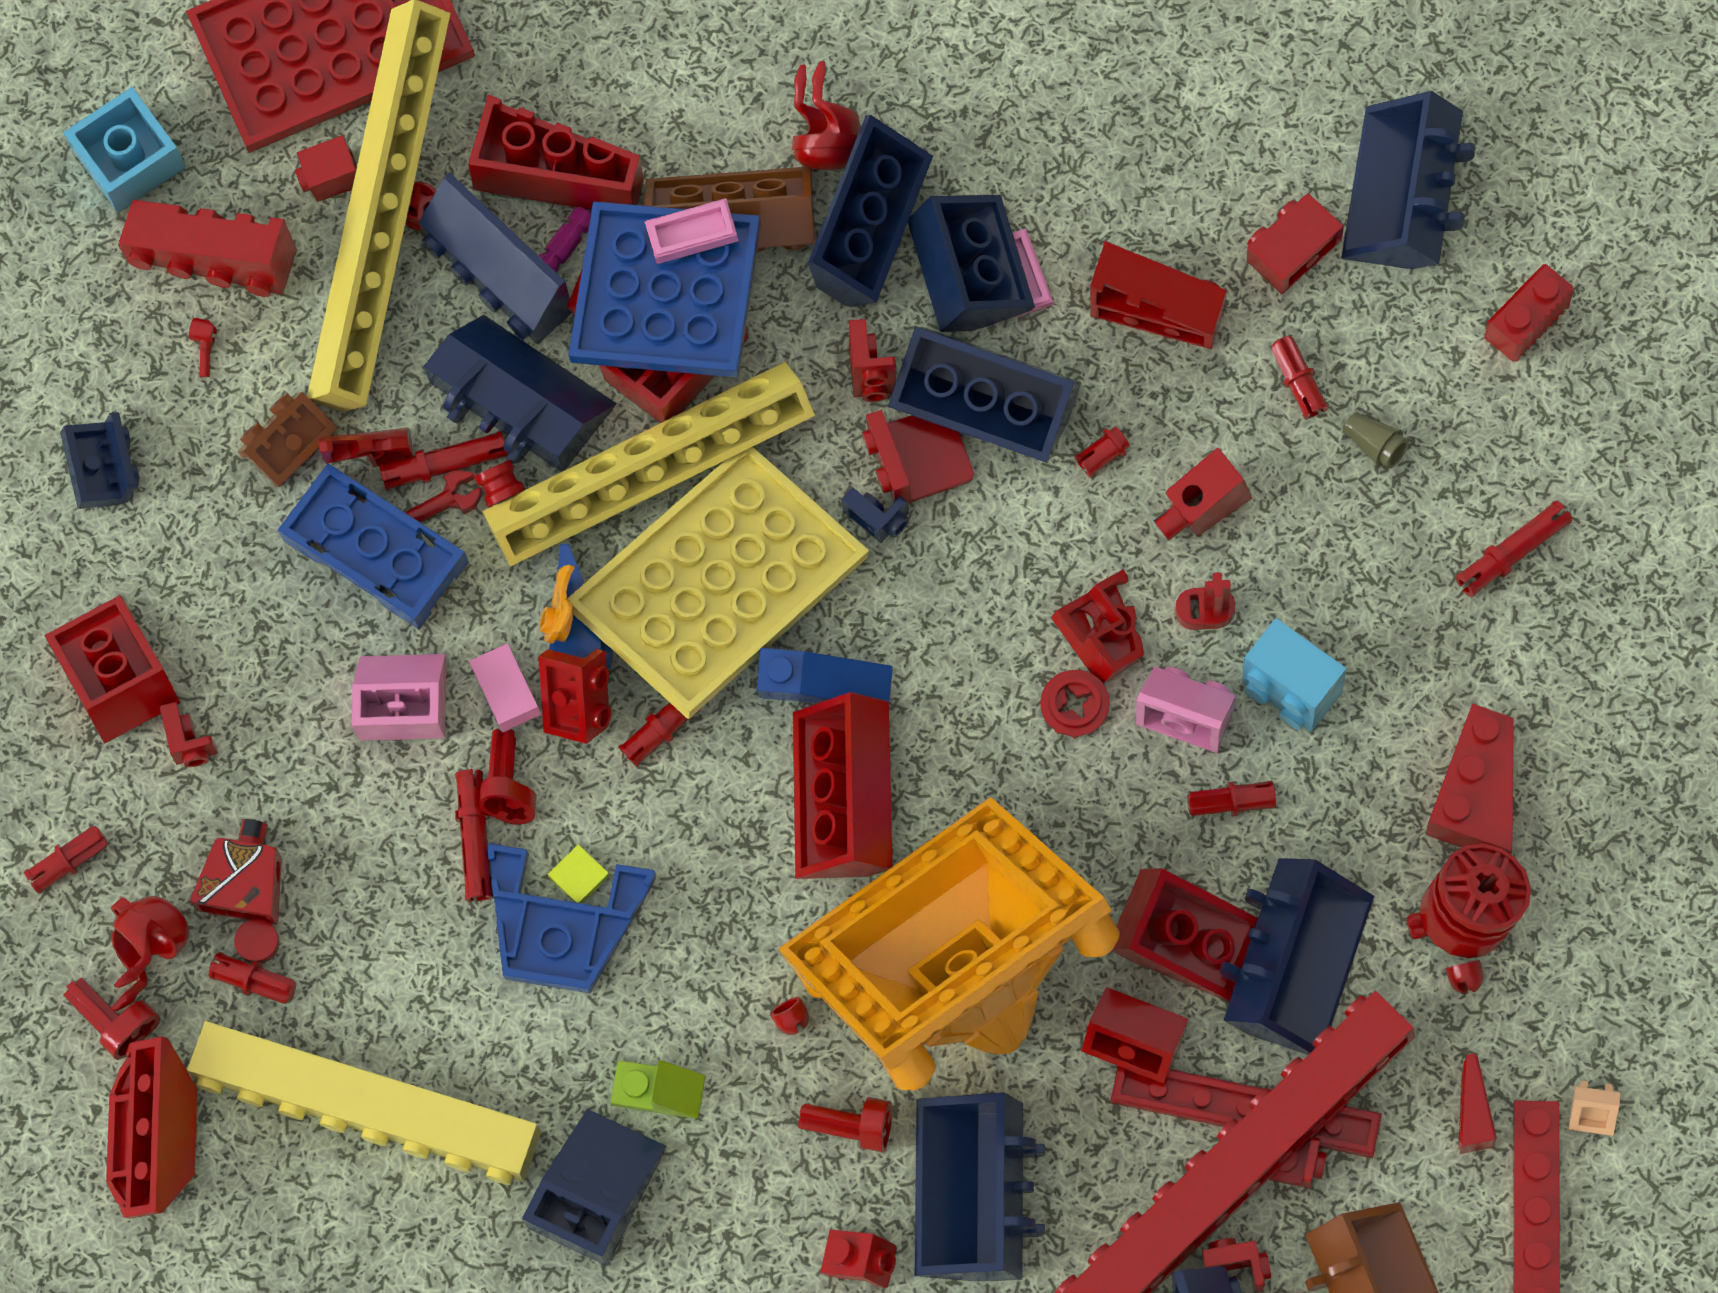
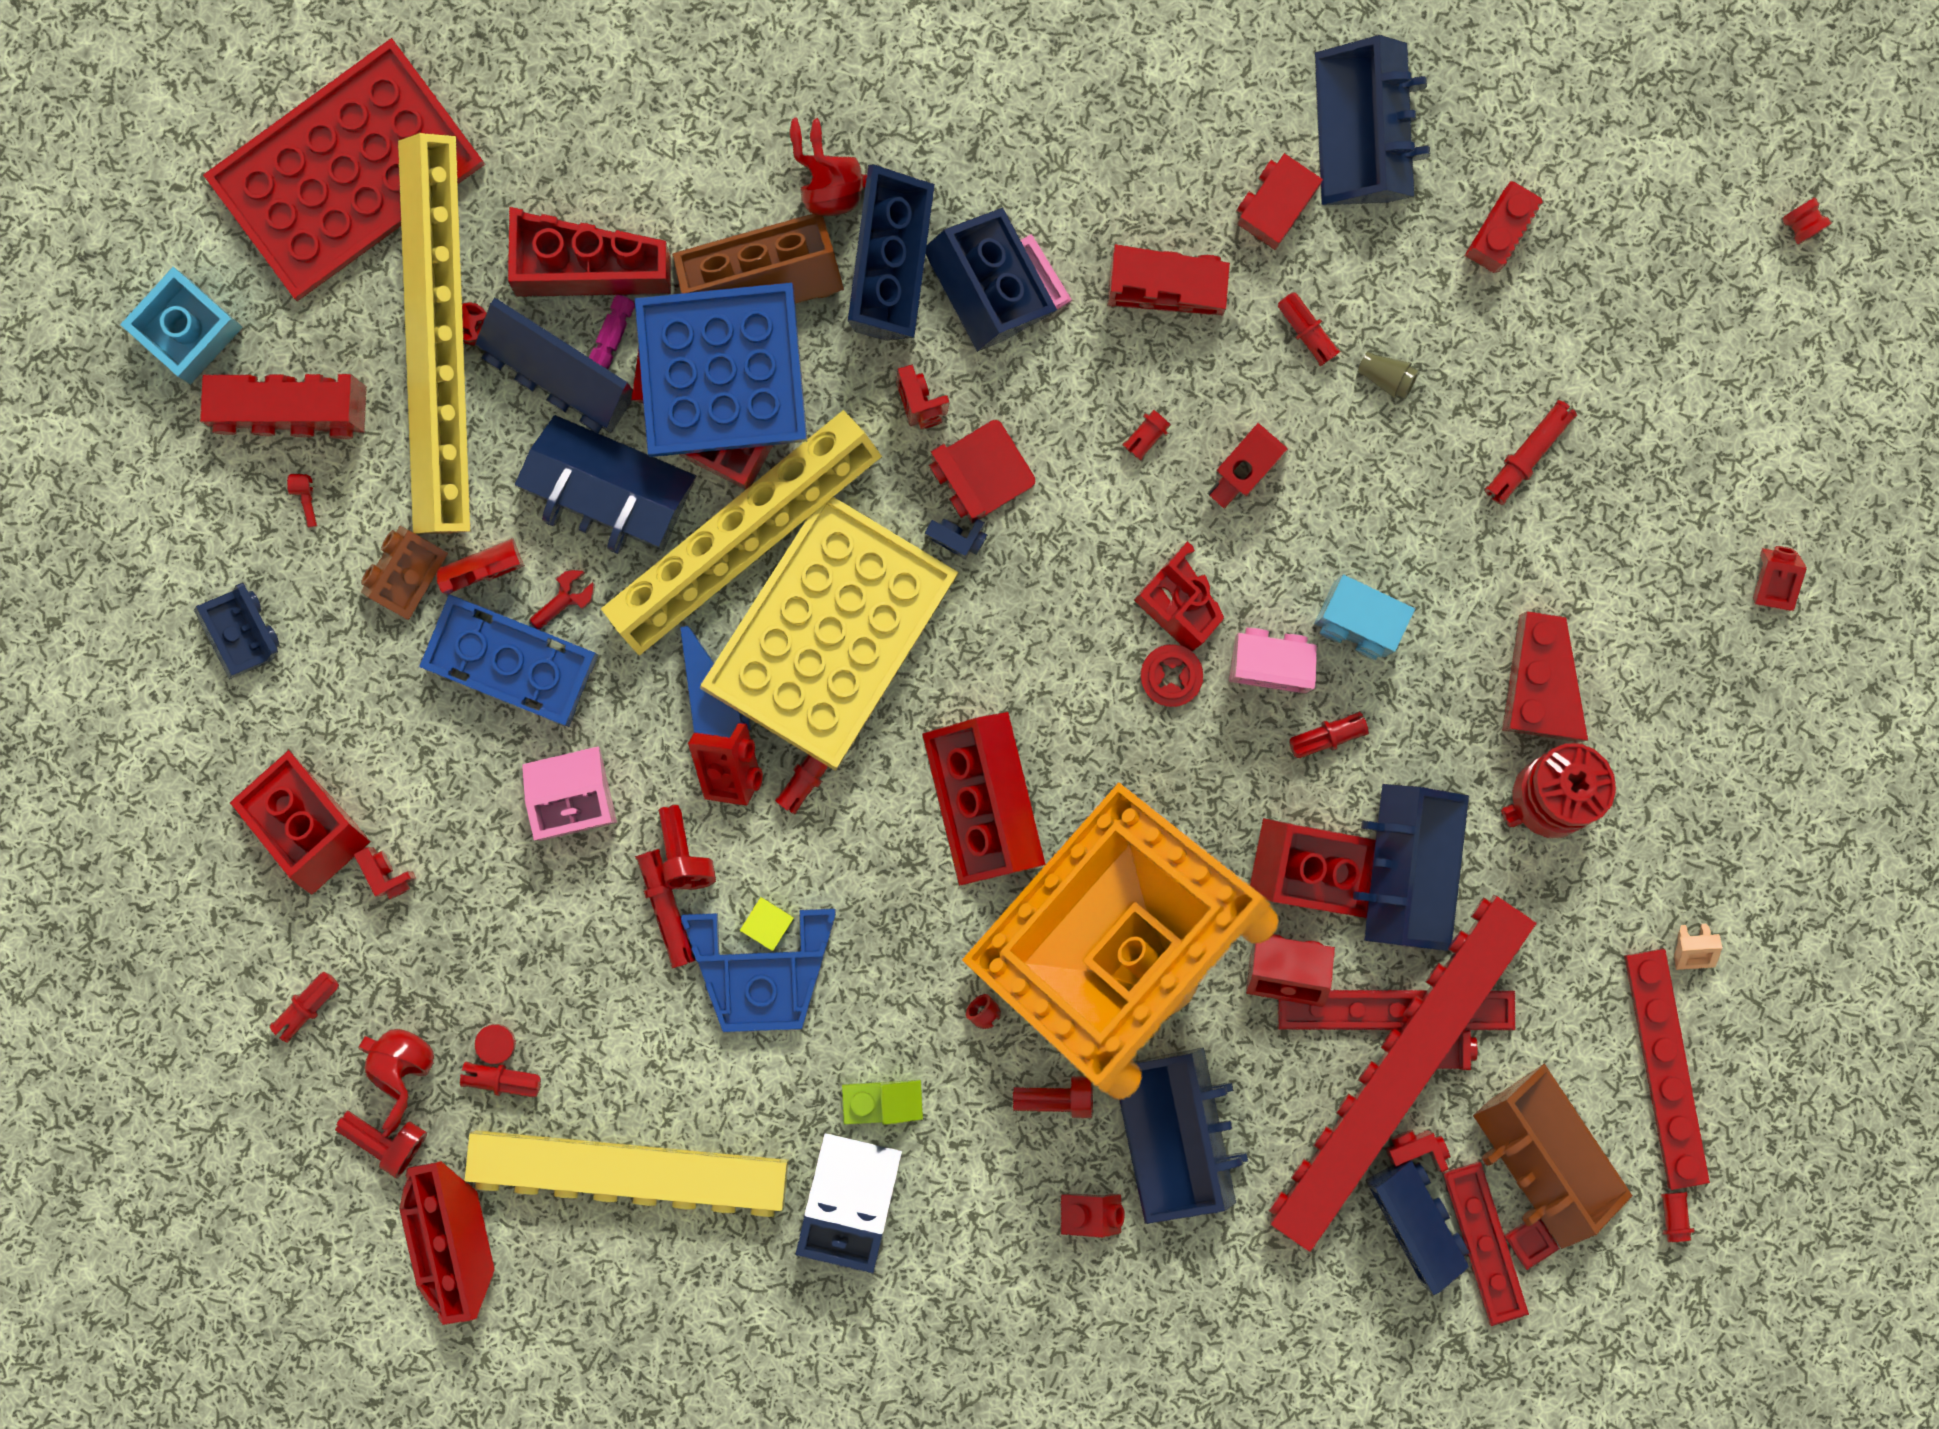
camera: 20 degrees left, 15 degrees up
(241, 877) = (467, 991): red torso -> none
(327, 168) = (376, 305): red brick -> none
(442, 460) = (561, 559): red pin -> none
(499, 483) = (609, 577): red wheel -> none
(505, 687) = (660, 767): bright pink tile -> none
(558, 619) = (697, 703): light orange plate -> none
(691, 231) = (733, 311): bright pink tile -> none
(819, 677) = (945, 701): blue slope -> none
(984, 394) = (1030, 404): dark blue slope -> none
(1214, 602) = (1278, 562): red piece -> none
(1465, 976) = (1566, 853): red hinge -> none
(1475, 1119) = (1596, 979): red slope -> none

